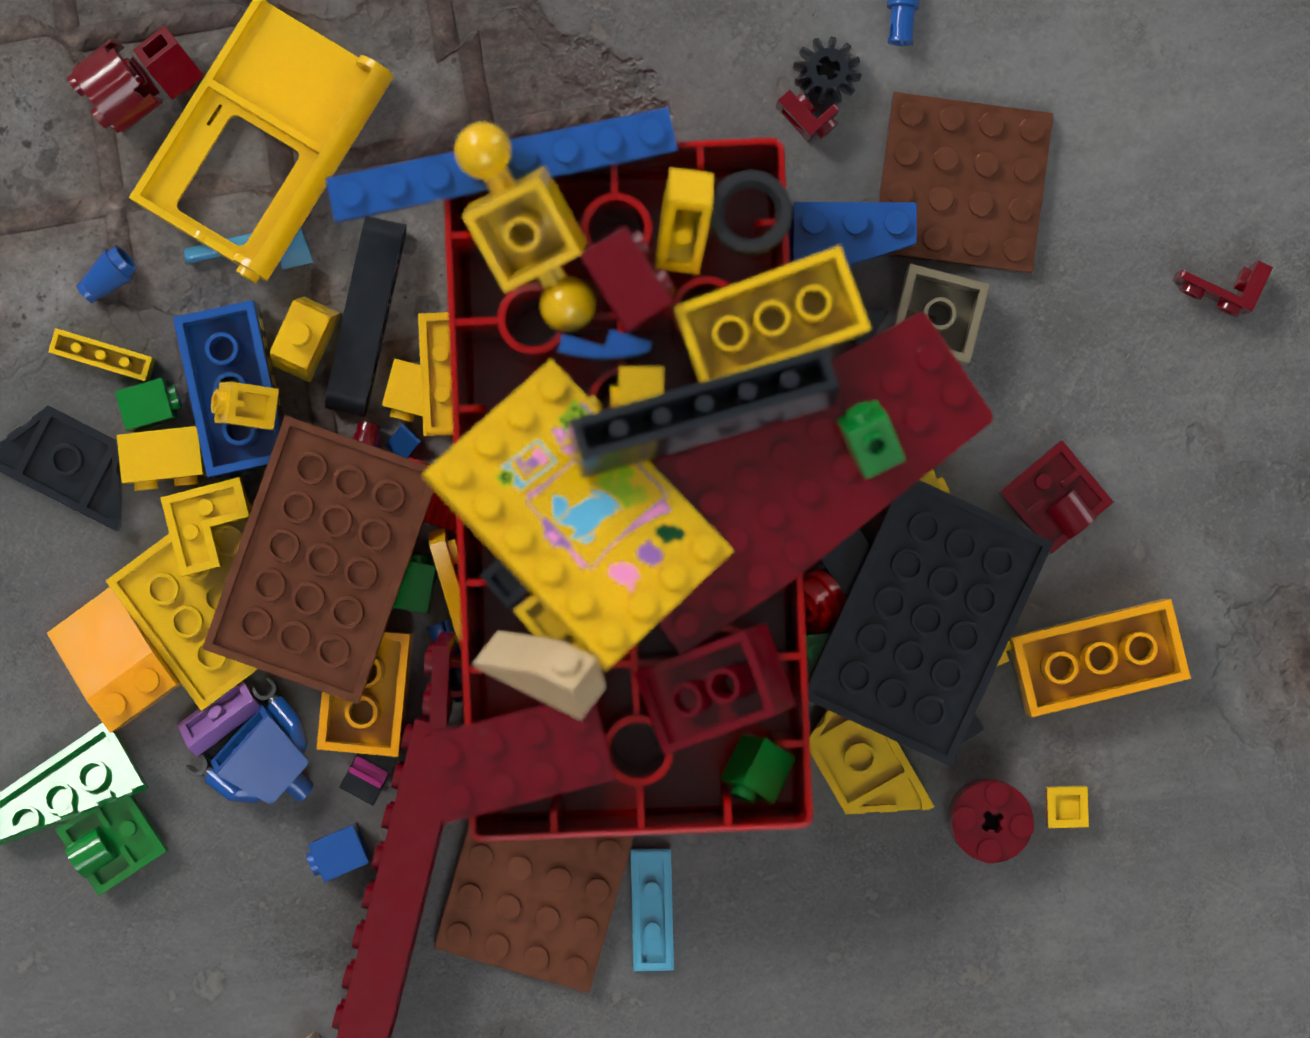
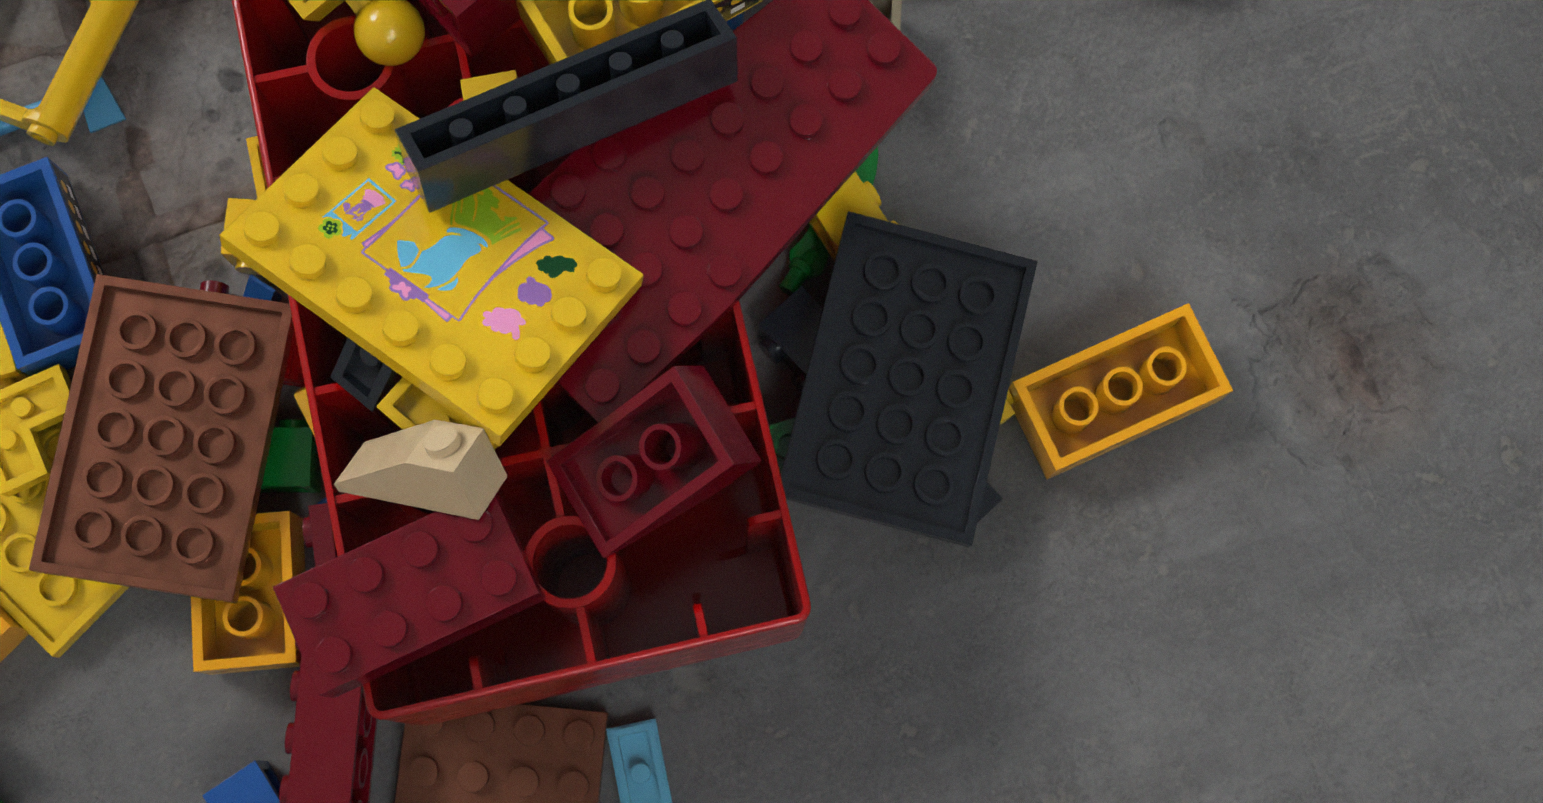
camera: 20 degrees left, 10 degrees down
(208, 726) = (64, 675): medium lavender plate -> none
(245, 405) = (48, 271): yellow bracket -> none
(261, 756) = (132, 697): blue torso -> none
(303, 337) = (121, 194): yellow torso -> none
(365, 316) = (191, 164): black beam -> none
(367, 776) = (270, 701): black piece -> none
(617, 347) = (427, 76): blue slope -> none
(757, 770) = (732, 571): green brick -> none
(821, 600) = (780, 384): red wheel -> none
(865, 768) = (870, 574): yellow wing -> none
(870, 438) = (789, 104): green brick -> none
(1013, 826) = (1061, 608): dark red brick -> none
(1056, 496) = (1029, 218): dark red plate -> none
(1066, 806) = (1119, 576): yellow plate -> none

